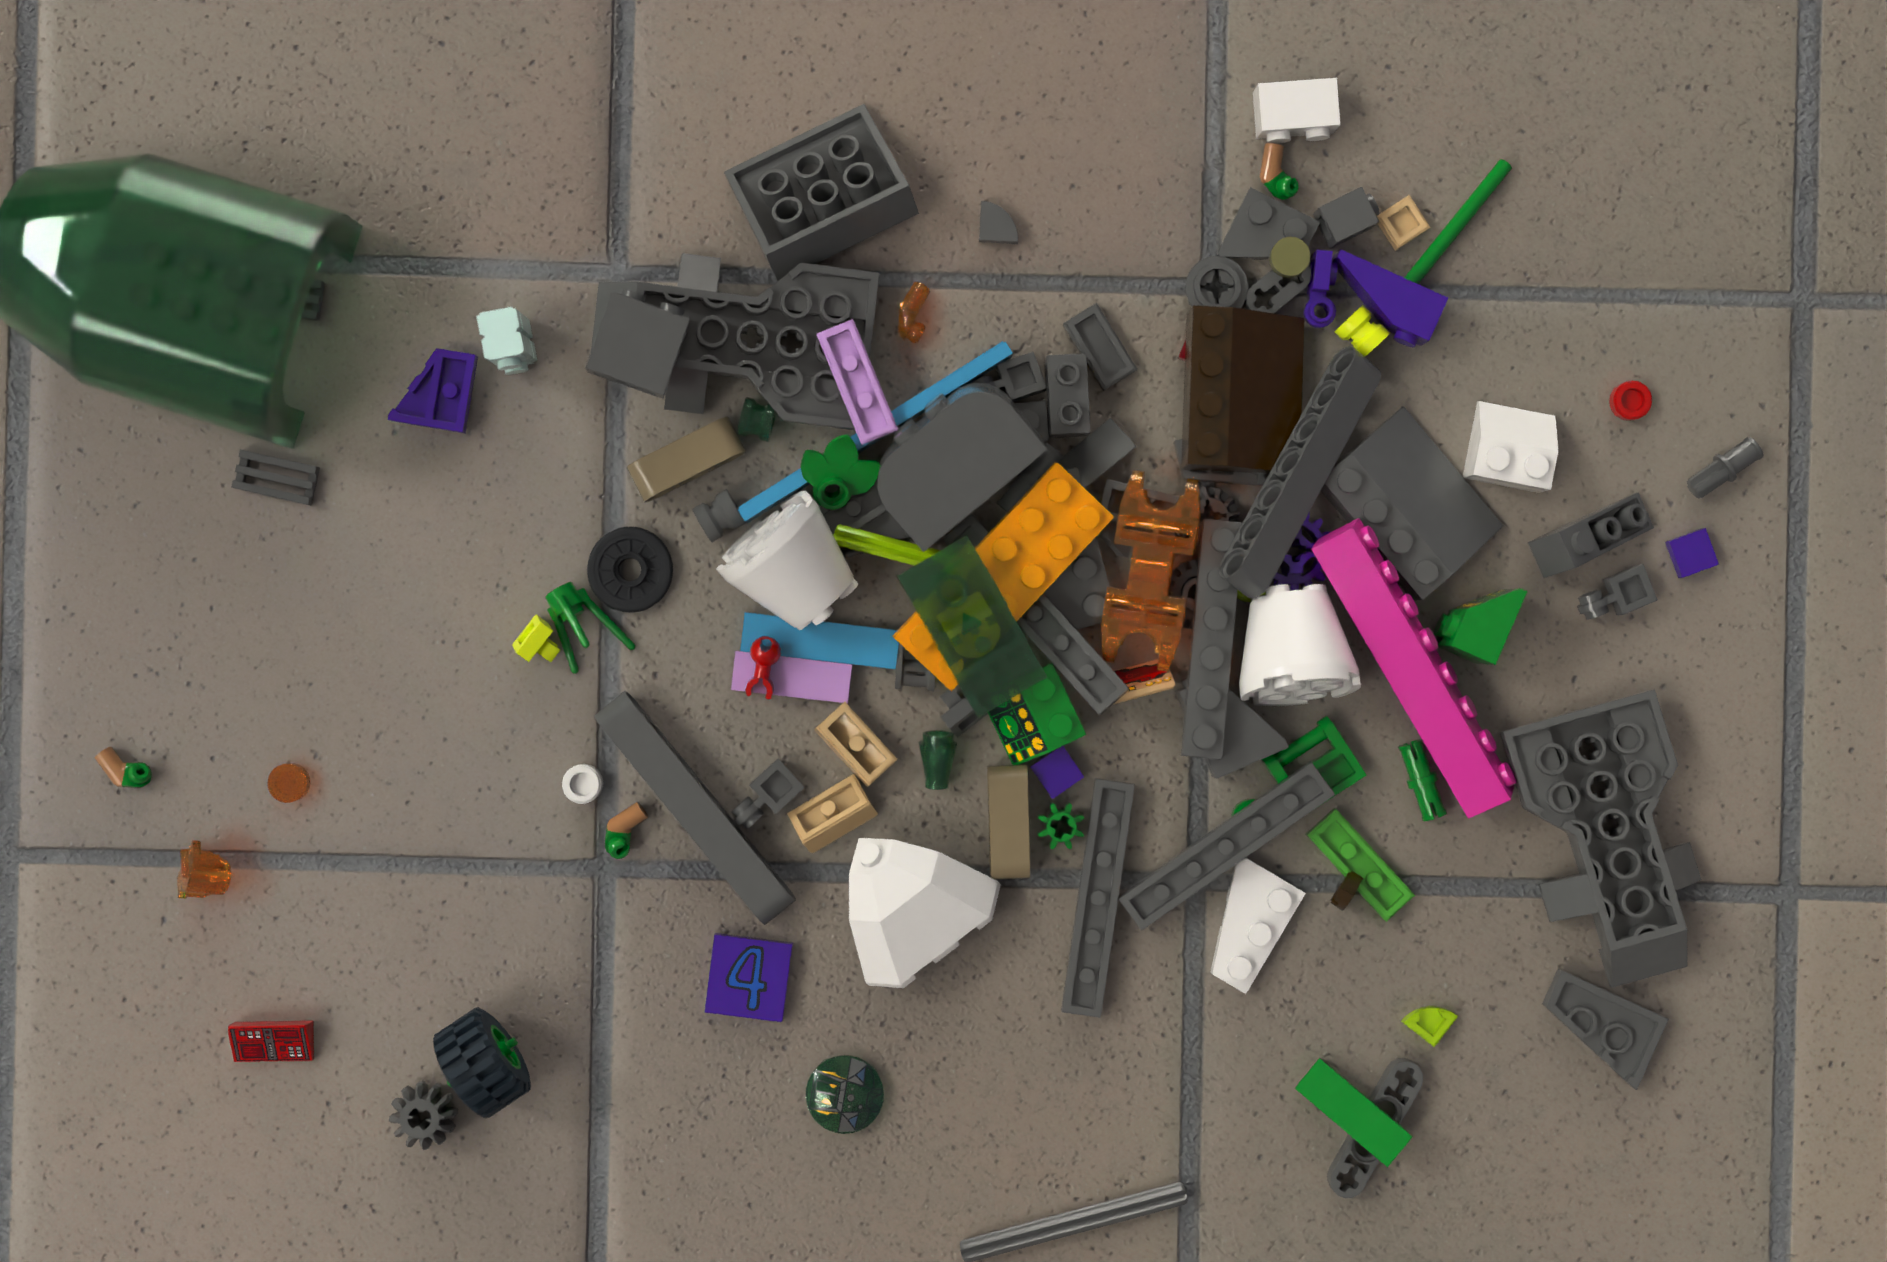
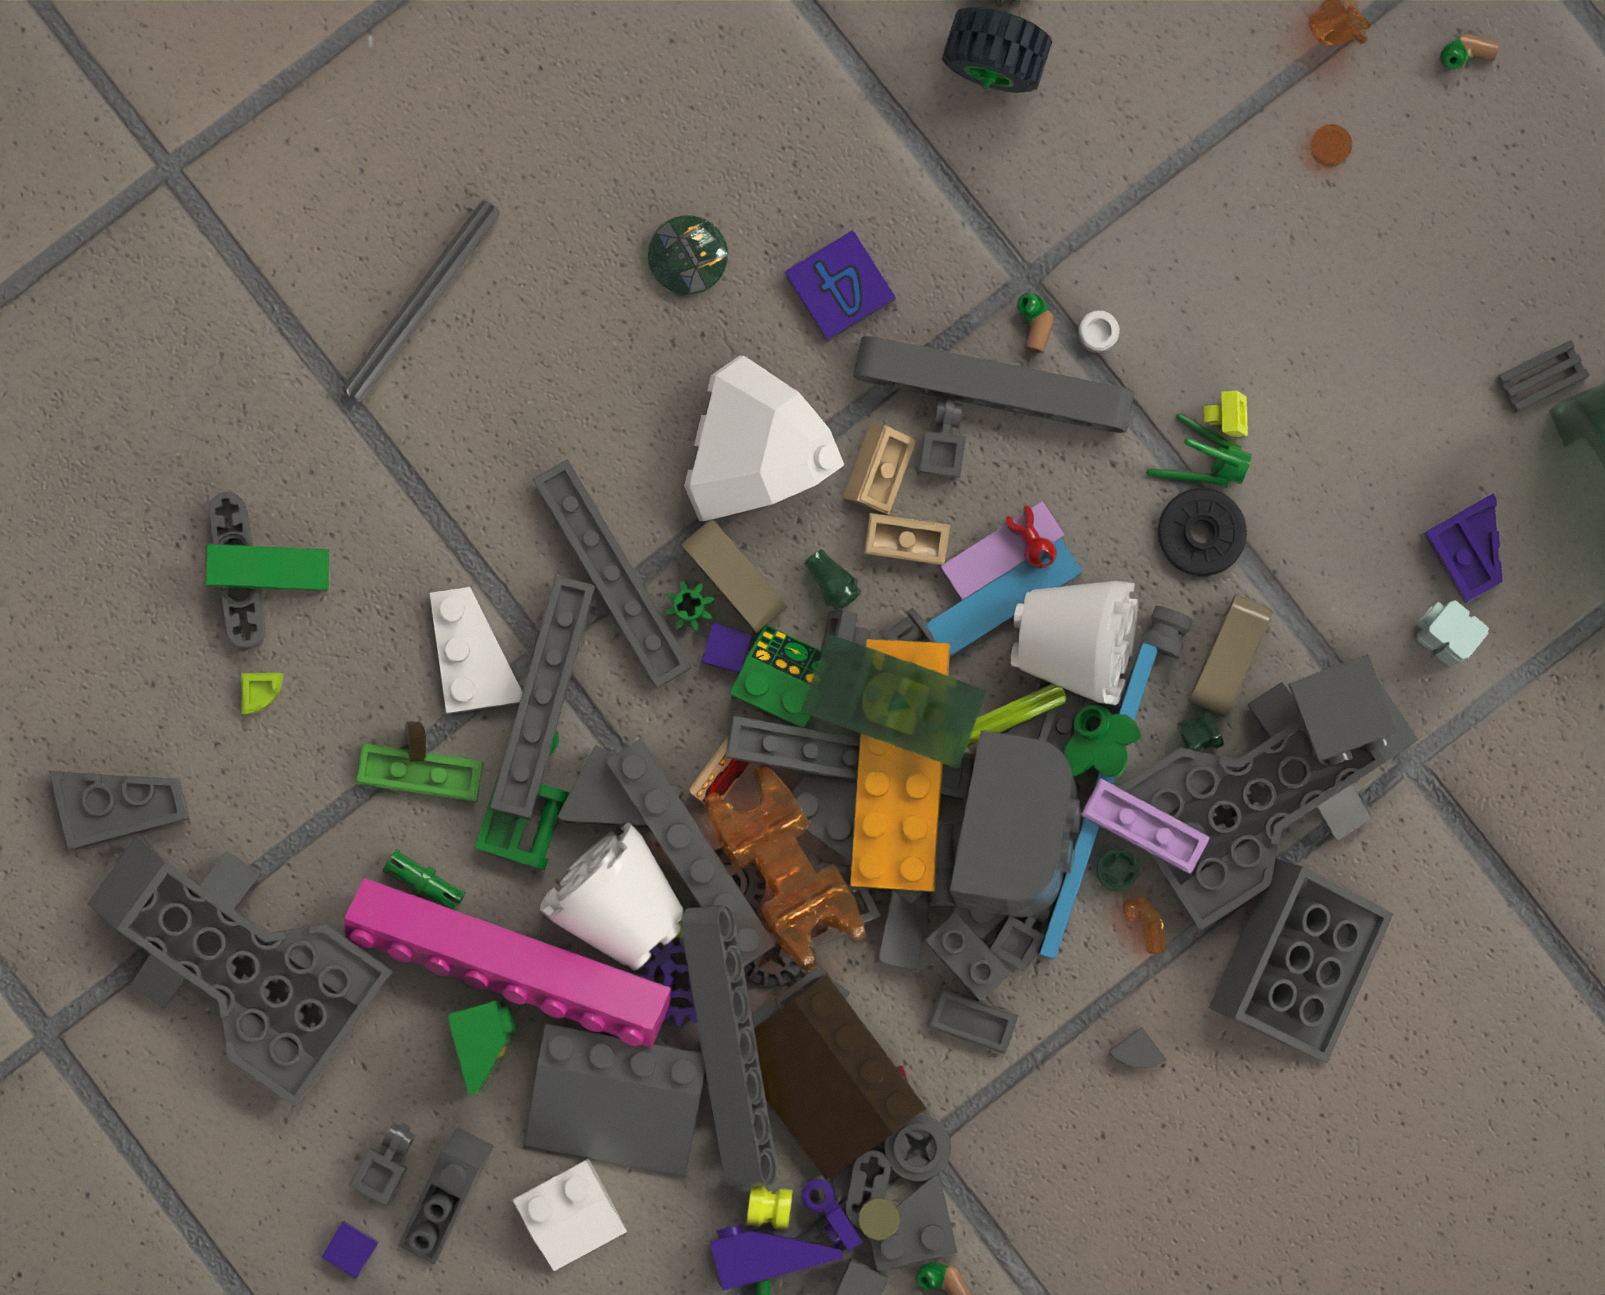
camera: 140 degrees right, 5 degrees down
(900, 361) = (1124, 869): none -> clear green wheel

